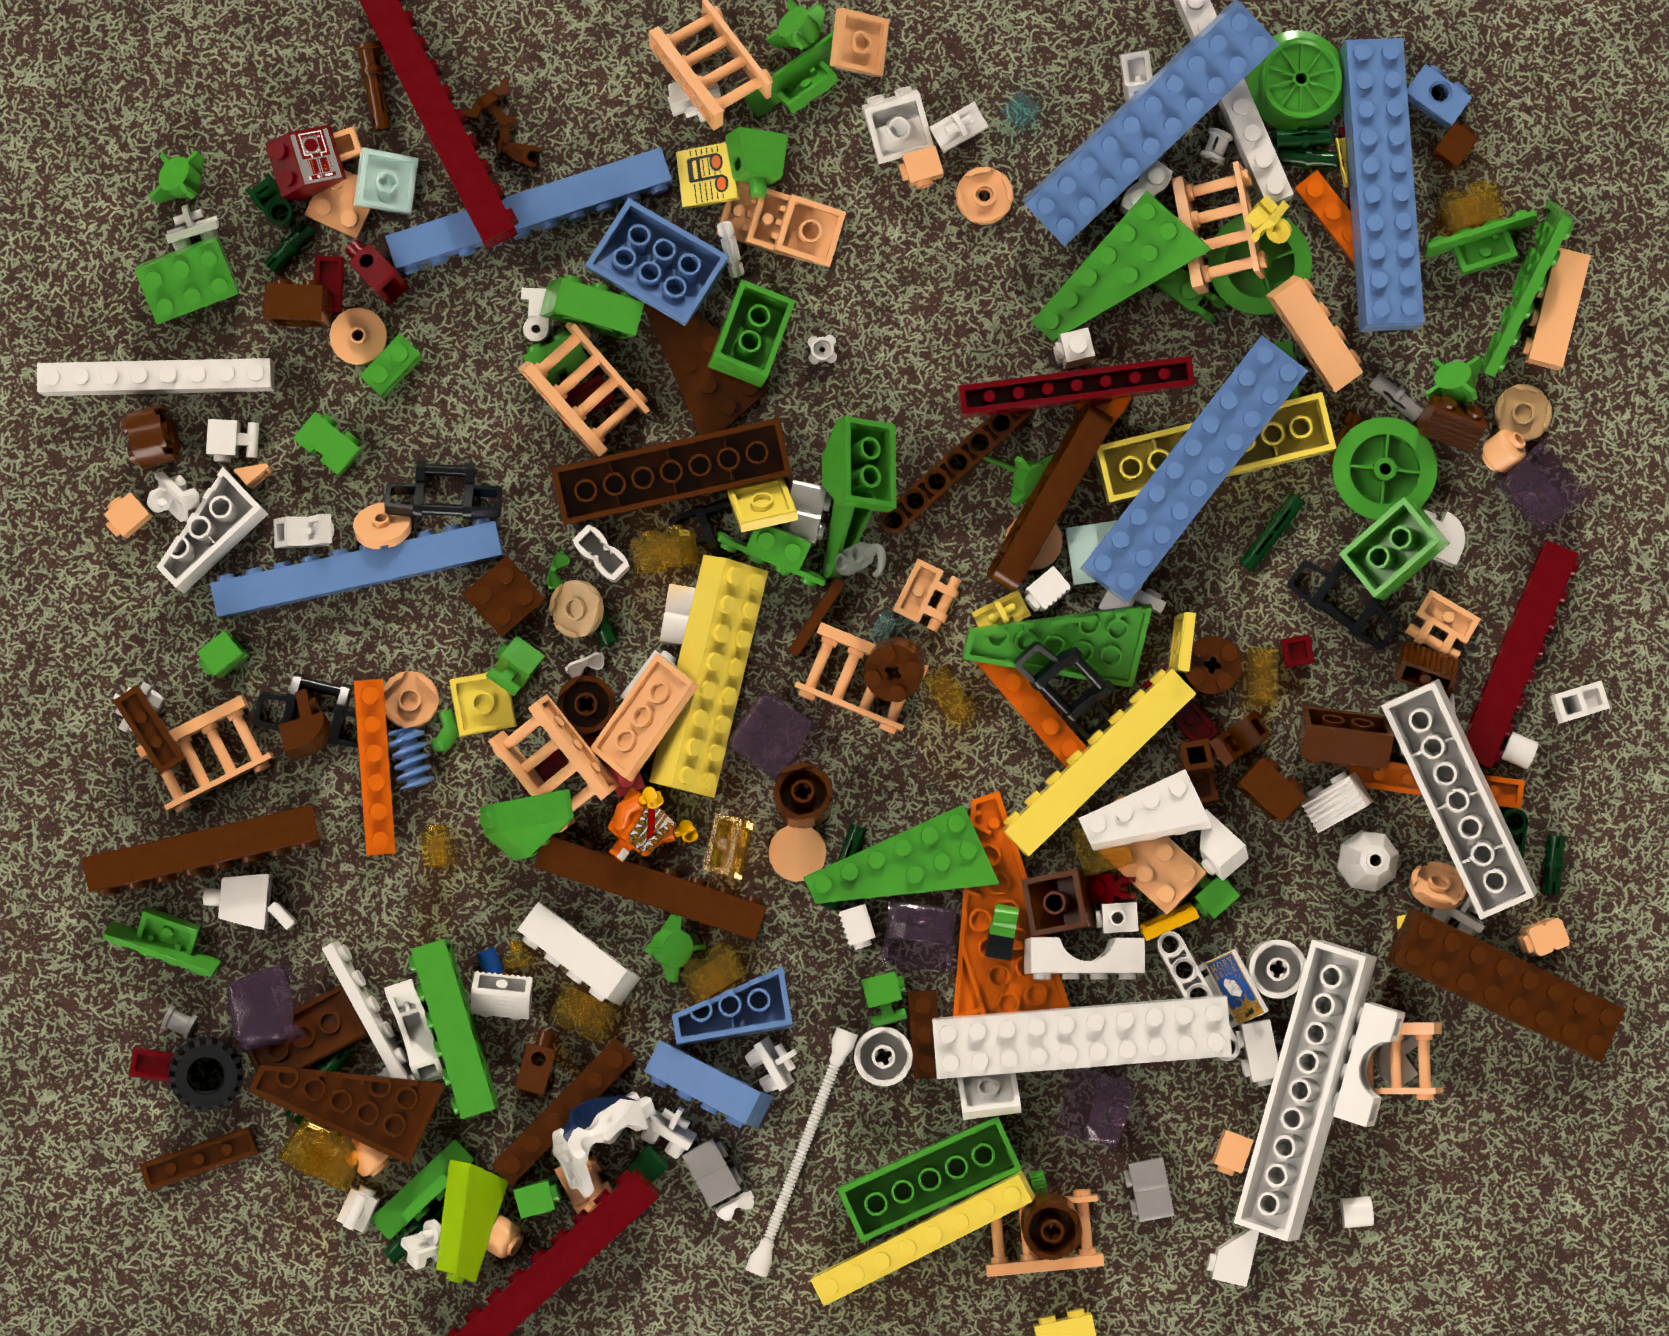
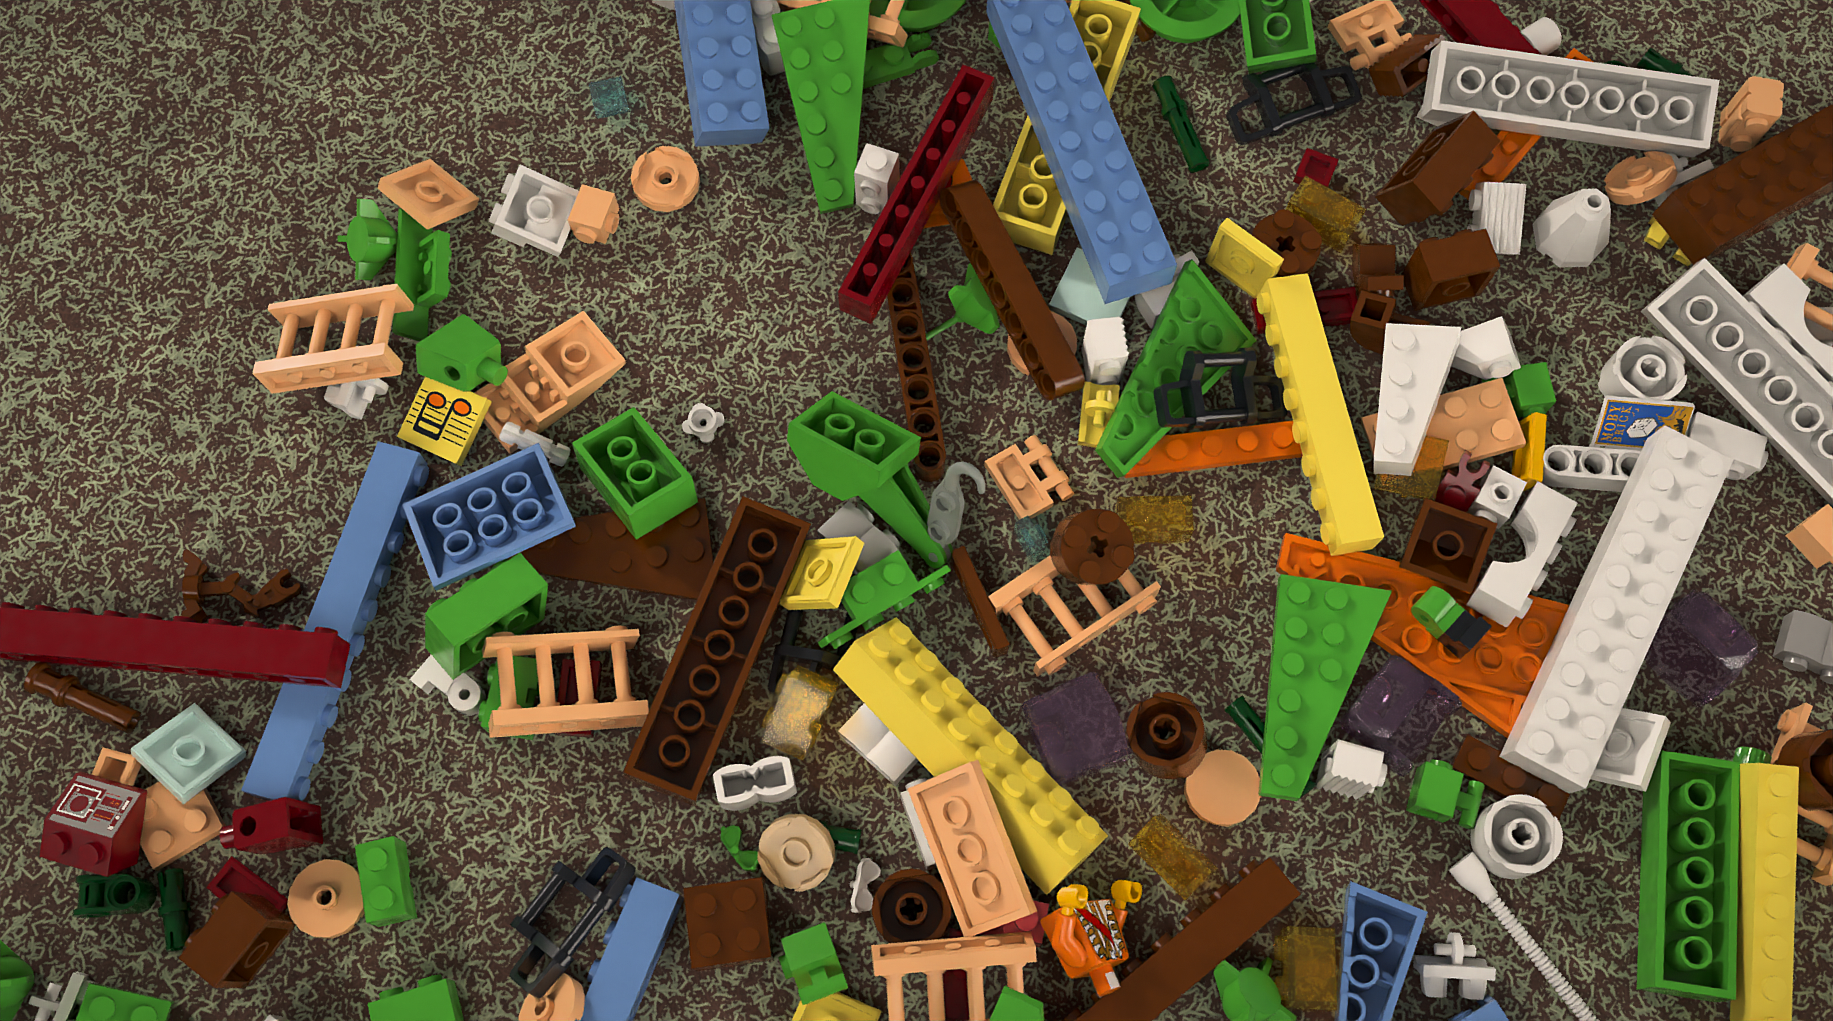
camera: 55 degrees left, 15 degrees down
(958, 127) = (581, 157): white hips -> none

